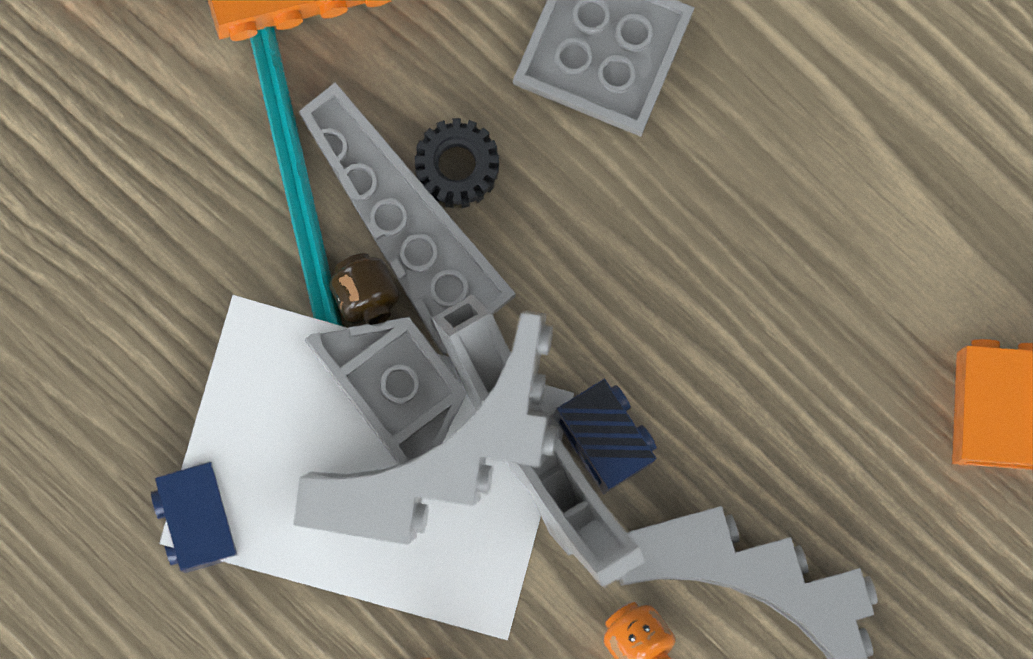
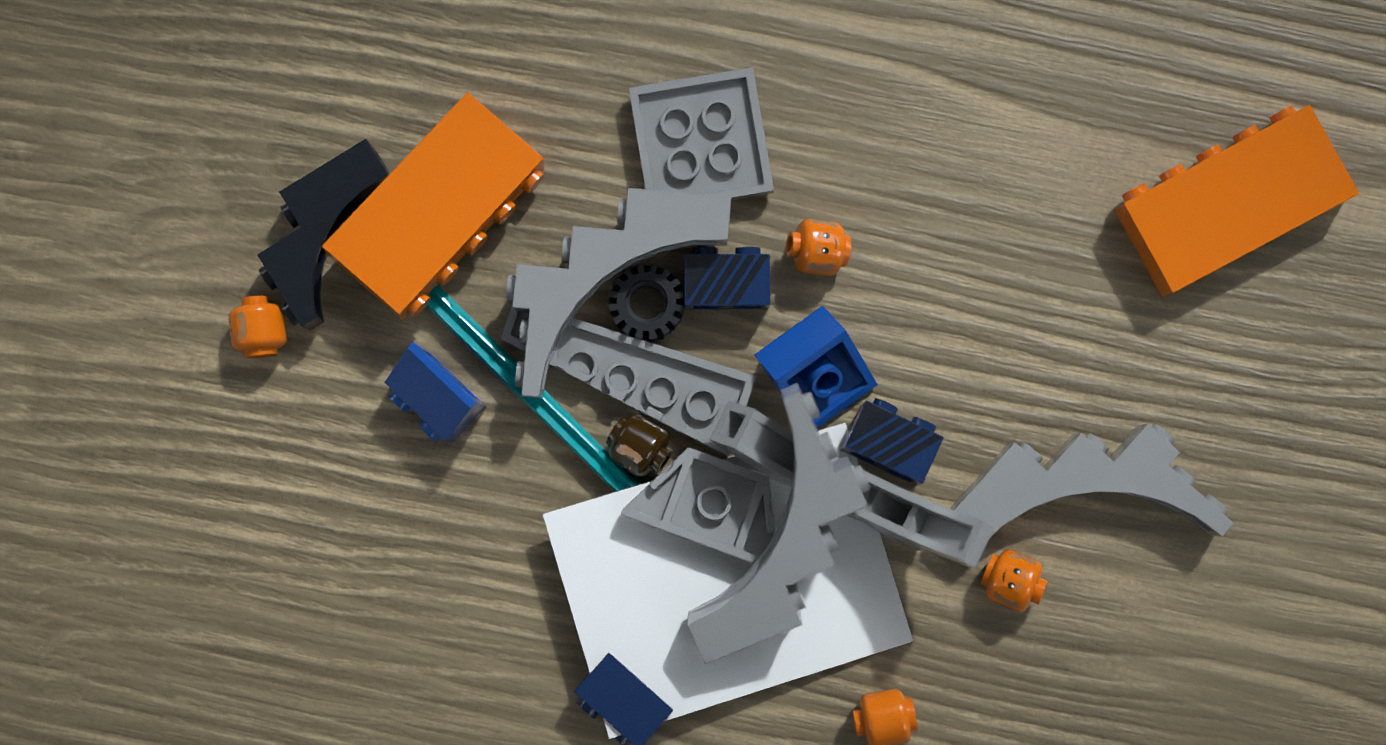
camera: 25 degrees left, 5 degrees up
(203, 120) = (432, 393): none -> blue slope
(373, 99) = (552, 296): none -> light grey arch
(545, 187) = (727, 280): none -> brick
(586, 320) = (821, 361): none -> blue slope
(651, 211) = (818, 247): none -> orange head

